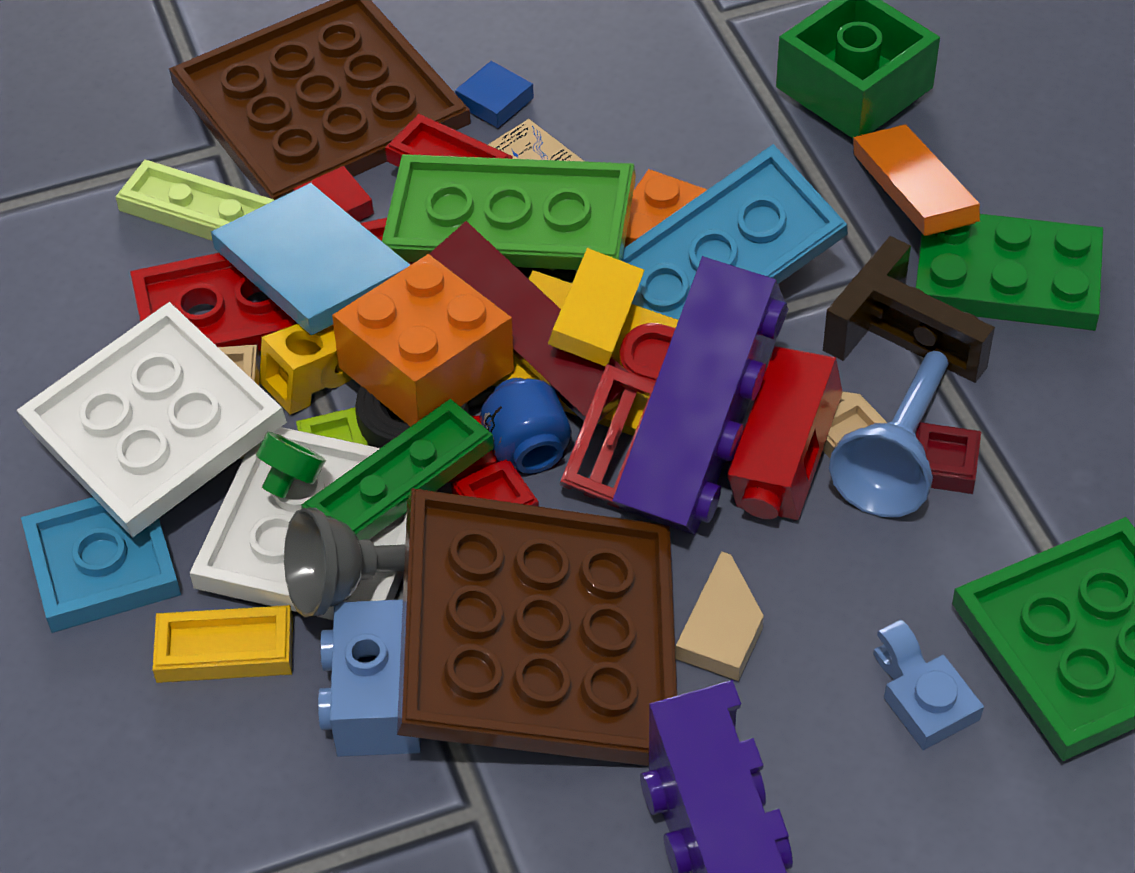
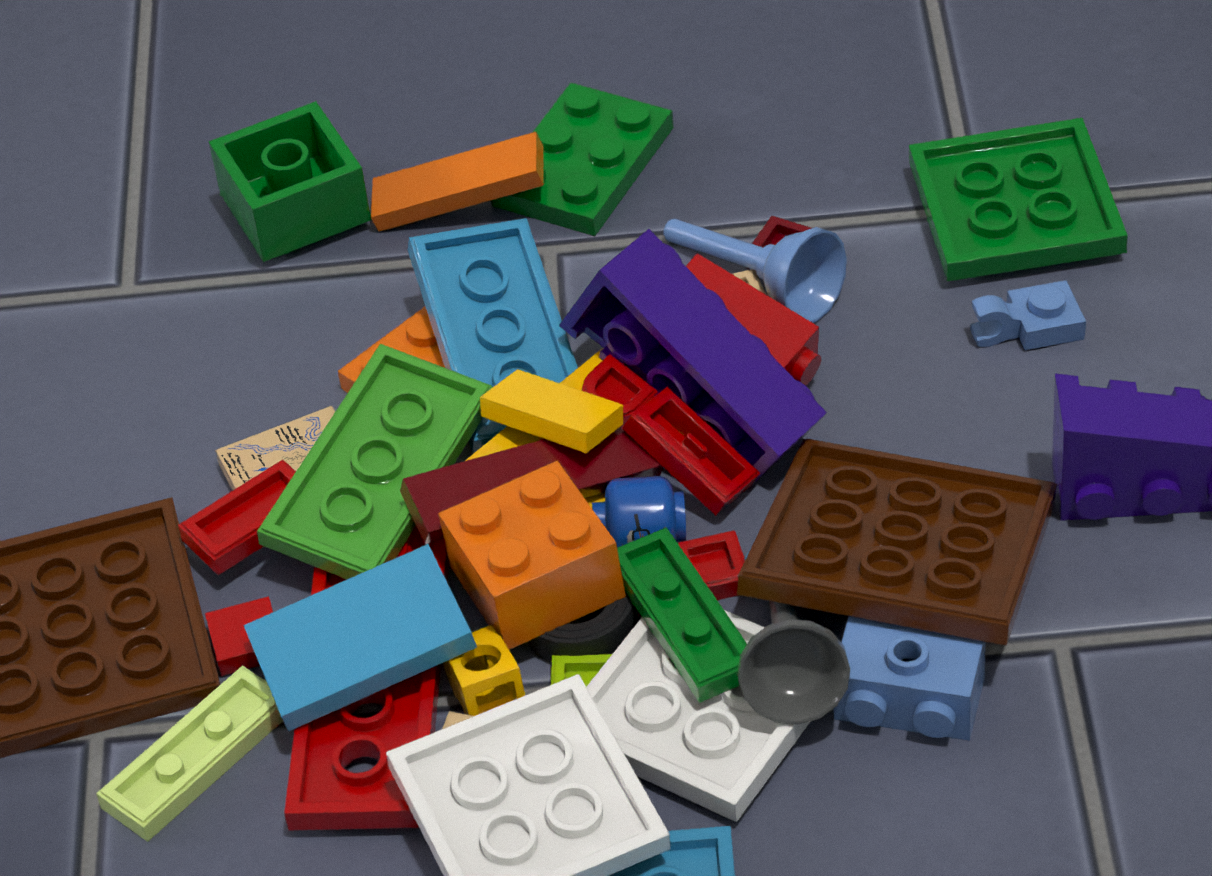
camera: 70 degrees left, 5 degrees down
(223, 644) = (814, 807): yellow tile -> none
(287, 462) = (644, 686): green tile -> none
(495, 93) = (153, 475): blue tile -> none
(722, 623) = (914, 428): tan tile -> none
(905, 315) = (595, 239): dark brown bracket -> none

